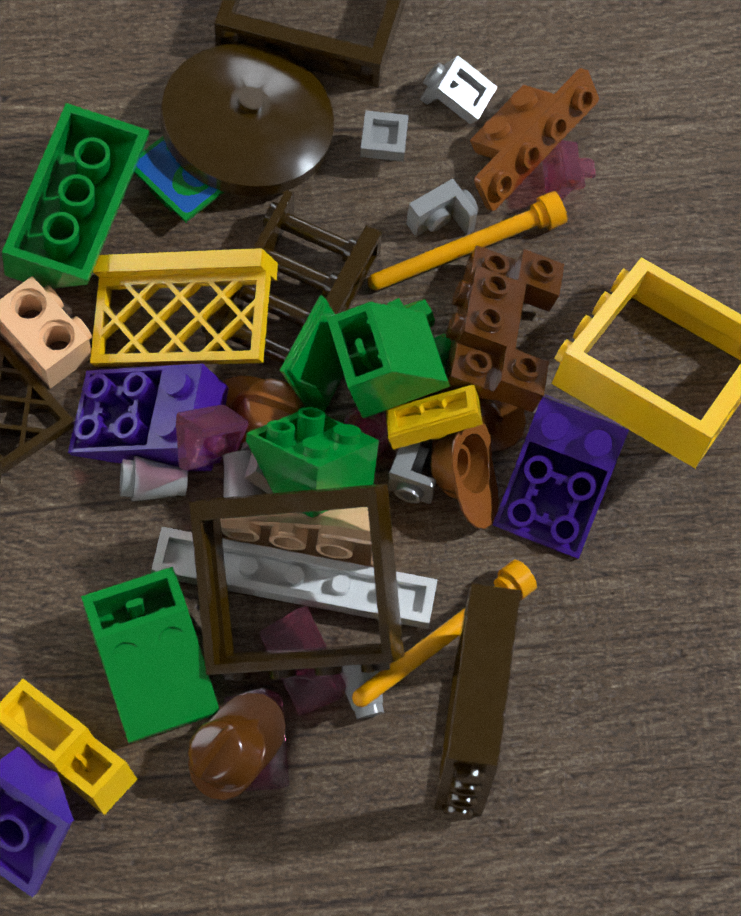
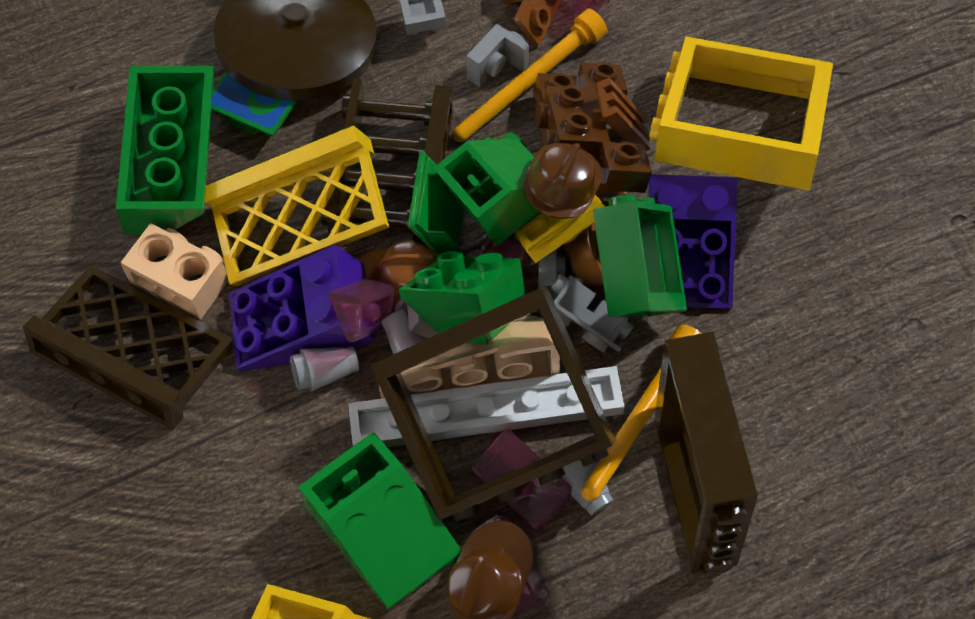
camera: 10 degrees left, 5 degrees down
(435, 534) = (572, 303): none -> light grey hinge
(448, 375) = (562, 180): none -> reddish brown piece
(496, 480) = (639, 258): none -> green window
(545, 322) = (623, 114): none -> dark orange tile

